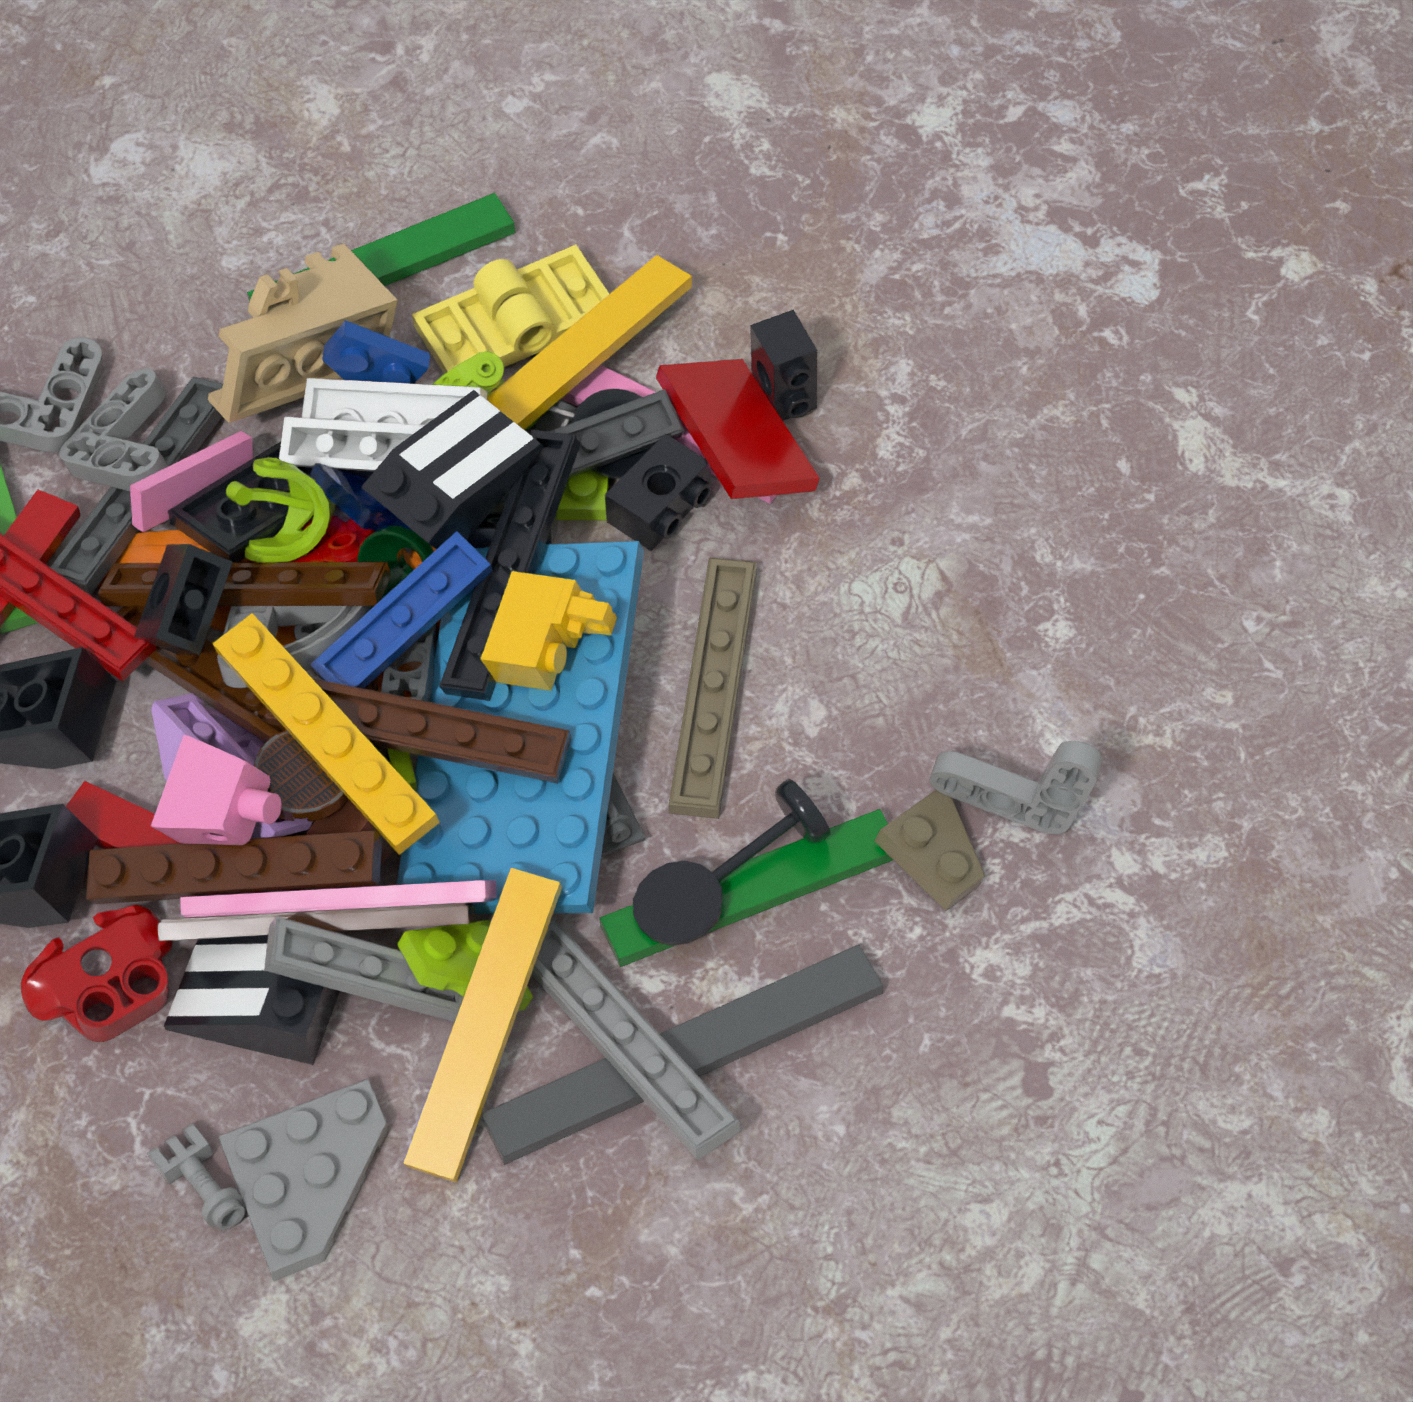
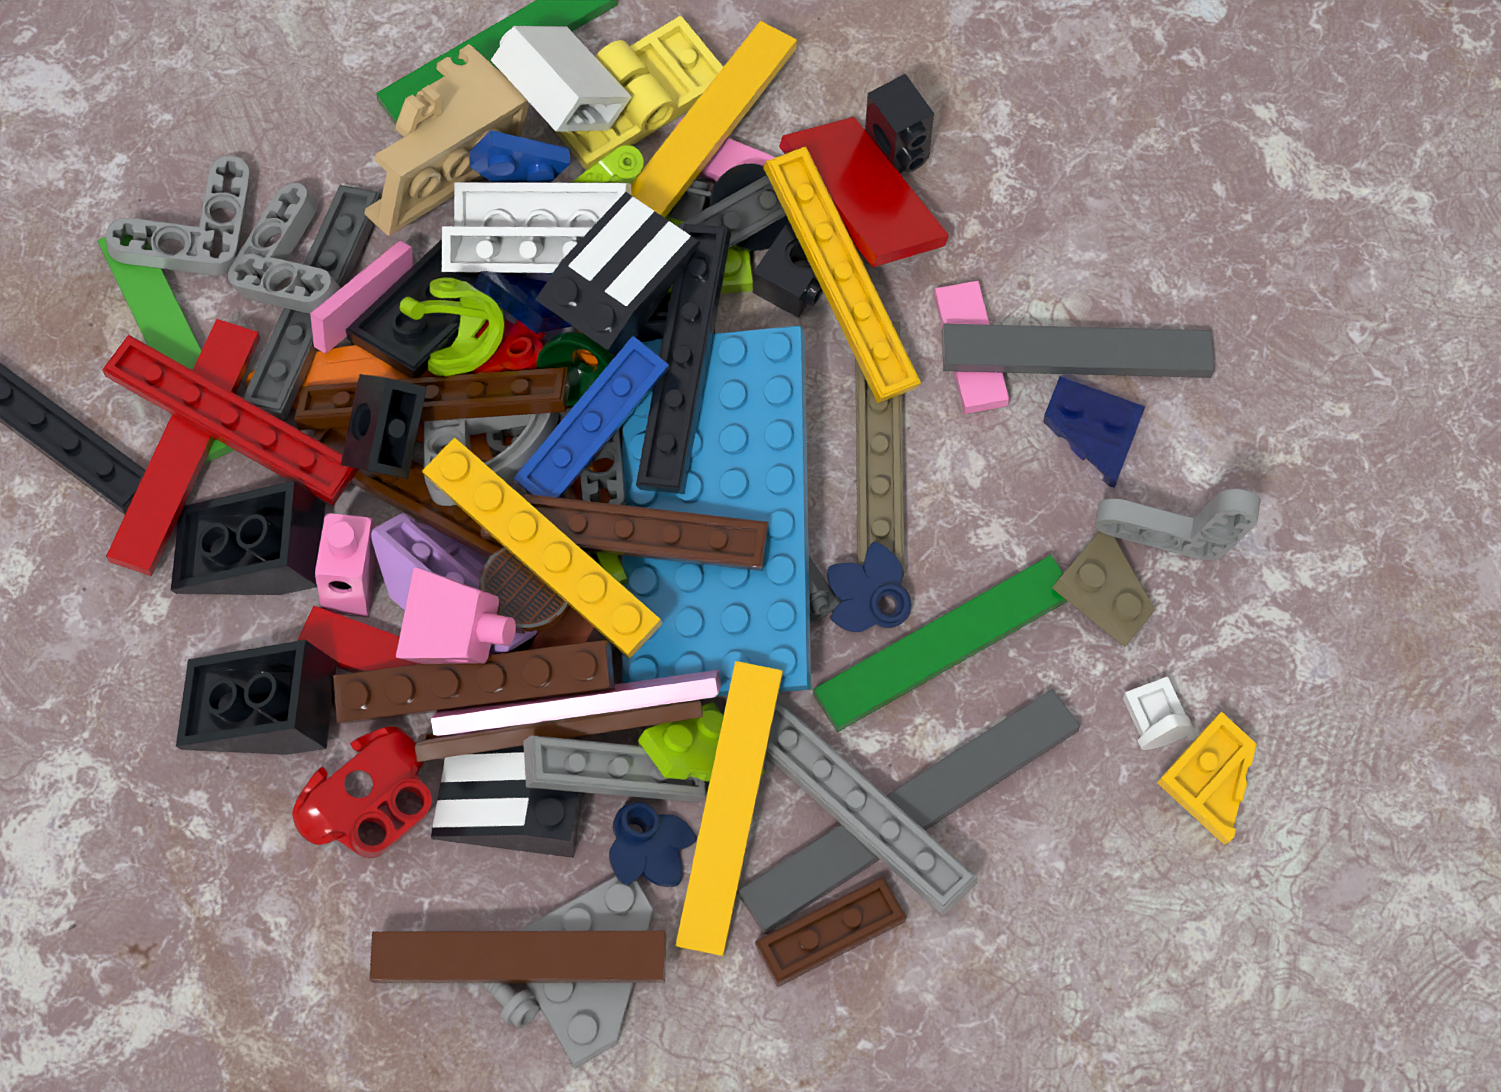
camera: 10 degrees left, 10 degrees up
(123, 729) = (347, 557): none -> bright pink torso
(230, 1151) = (518, 957): none -> reddish brown tile
(396, 1063) = (650, 852): none -> dark blue plate
(434, 285) = (560, 78): none -> white brick
(537, 624) = (721, 418): yellow hinge -> none
(575, 1168) = (830, 931): none -> reddish brown tile
(673, 820) = (864, 586): none -> dark blue plate
(686, 899) = (888, 665): black piece -> none
(698, 506) = (841, 275): none -> yellow tile
(829, 596) = (965, 305): none -> bright pink tile
(942, 607) = (1077, 350): none -> dark grey tile
(950, 685) = (1094, 425): none -> clear blue wing
(971, 984) = (1157, 714): none -> white tile
(1020, 1051) = (1212, 776): none -> yellow wing

